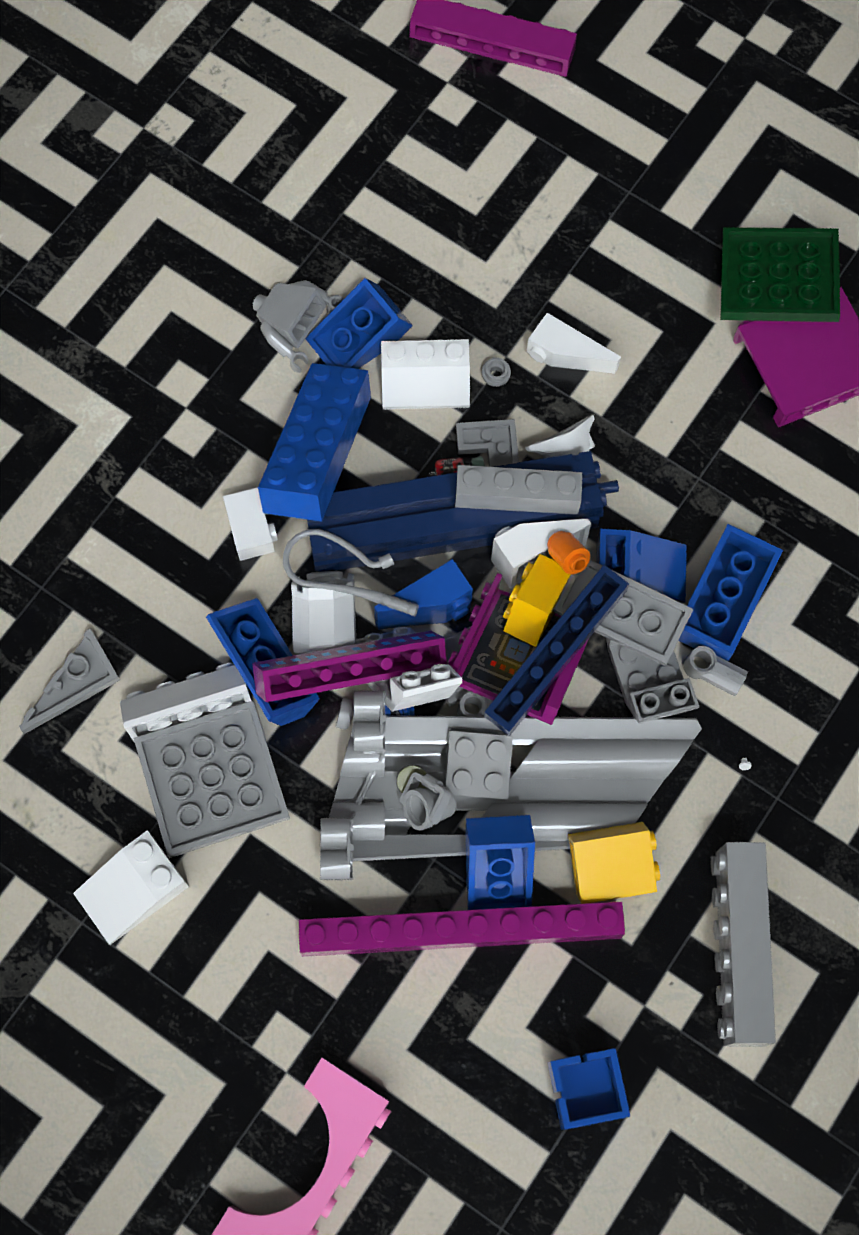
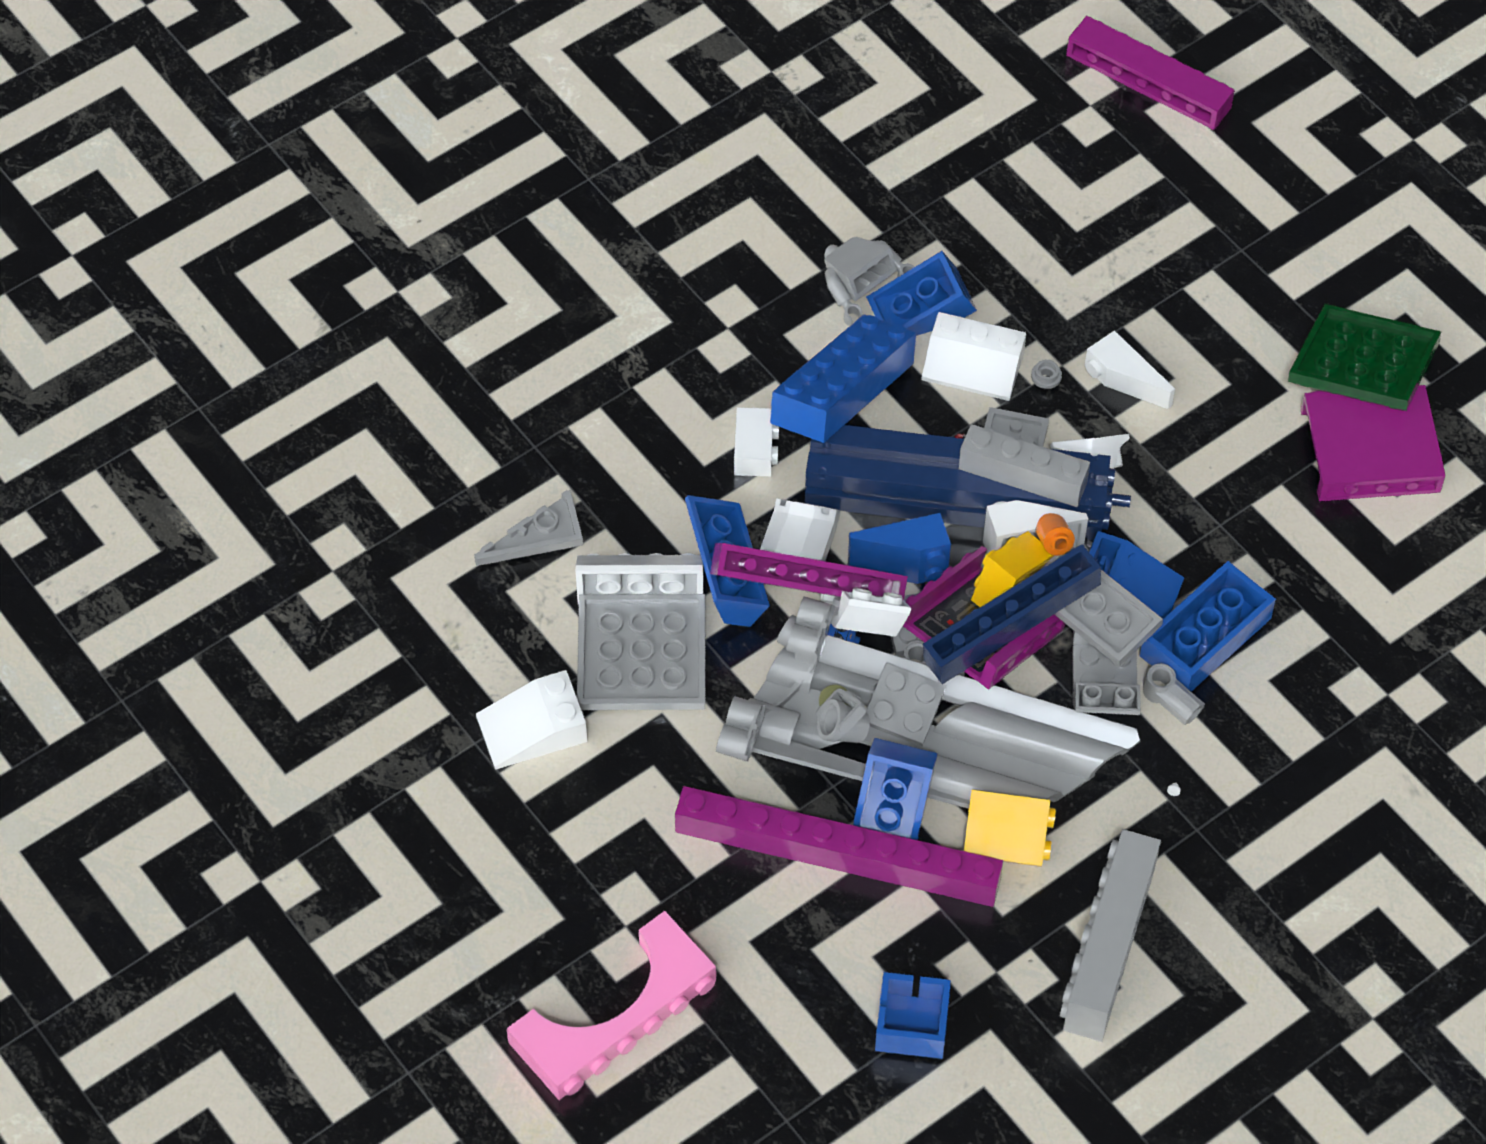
camera: 20 degrees right, 15 degrees down
(375, 596) = (854, 523): light grey piece -> none

